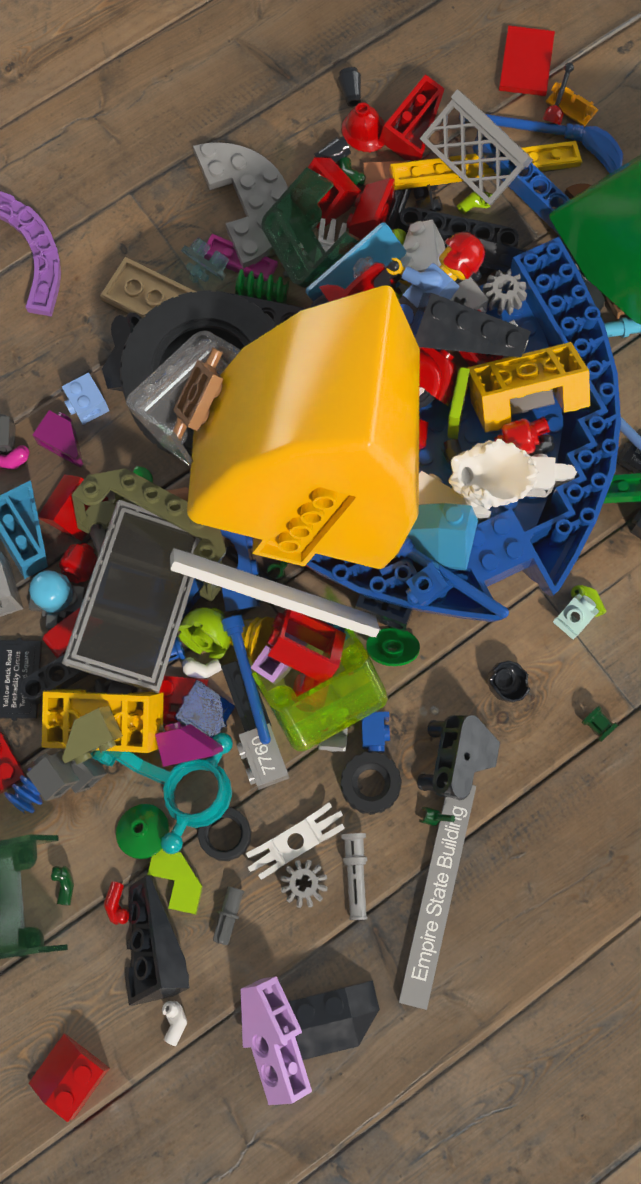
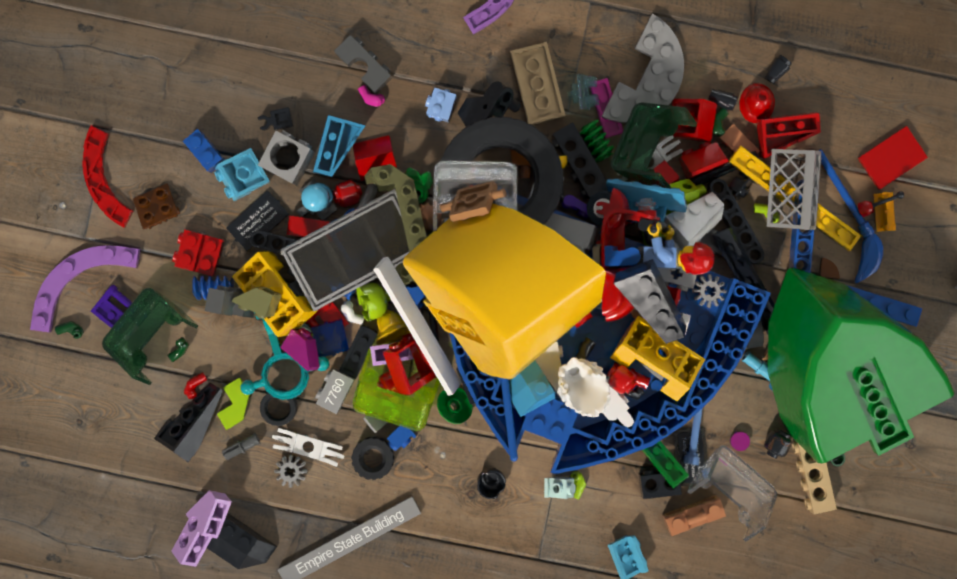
camera: 45 degrees right, 15 degrees up
(59, 437) = (406, 113): magenta slope -> none
(68, 1078) = (93, 441): red slope -> none
(148, 841) = (248, 370): green dish -> none
(176, 1019) = (169, 468): white arm -> none
(234, 628) = (384, 316): blue piece -> none
(355, 862) = (325, 486): light grey pin -> none
(434, 816) = (384, 505): dark green hand -> none
(437, 587) = (498, 407): blue brick -> none
(458, 403) = (614, 327): lime tile -> none
(472, 751) = (434, 498): piece -> none
(599, 723) = (512, 549): dark green bush -> none

